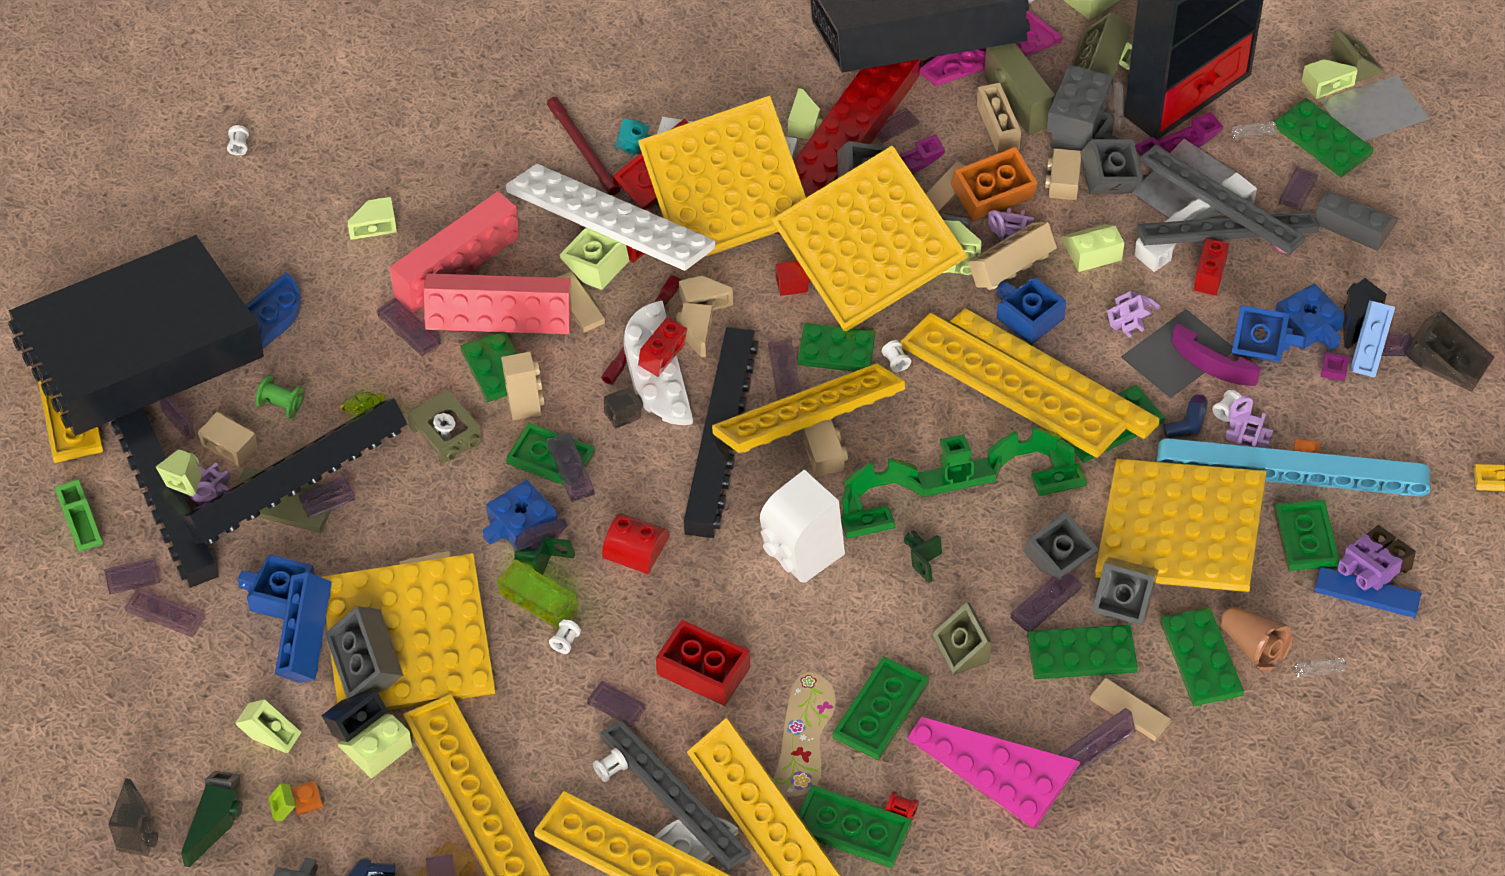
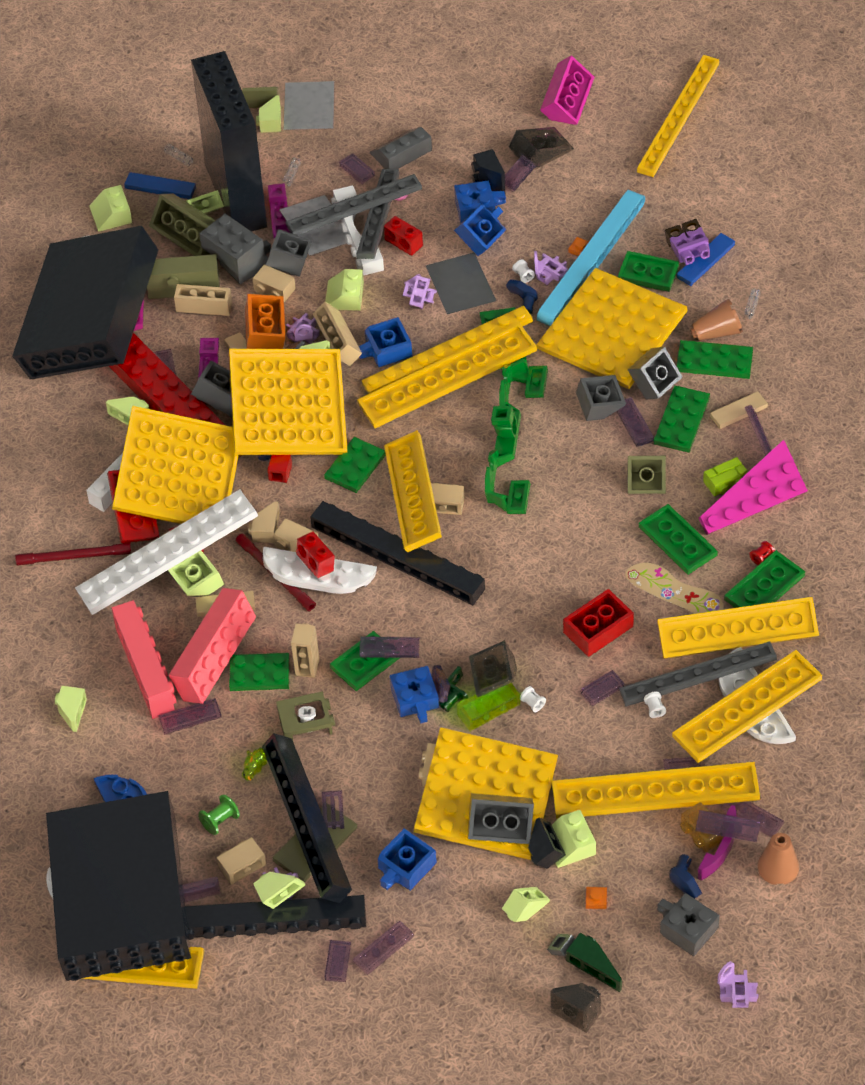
camera: 65 degrees left, 0 degrees up
(78, 515) = (263, 981): bright green slope -> none
(281, 802) = (597, 911): lime plate -> none
(303, 627) = (457, 850): blue brick -> none
(576, 574) = (493, 668): none -> clear smoke slope
(623, 407) = (345, 603): clear smoke brick -> none
(629, 134) = (89, 518): teal brick -> none
(634, 543) = (471, 633): red brick -> none
(783, 369) = (360, 501): tile -> none
(802, 527) = (526, 520): white brick -> none
(896, 356) = (384, 432): white bush -> none
(923, 552) = (559, 472): dark green bracket -> none
(1005, 723) = (724, 476): none -> lime brick
(1239, 372) = (461, 272): magenta slope -> none
(1323, 137) = (320, 138): green plate -> none
(1334, 366) = (520, 206): magenta plate -> none
(1372, 338) = (517, 174): light blue plate -> none

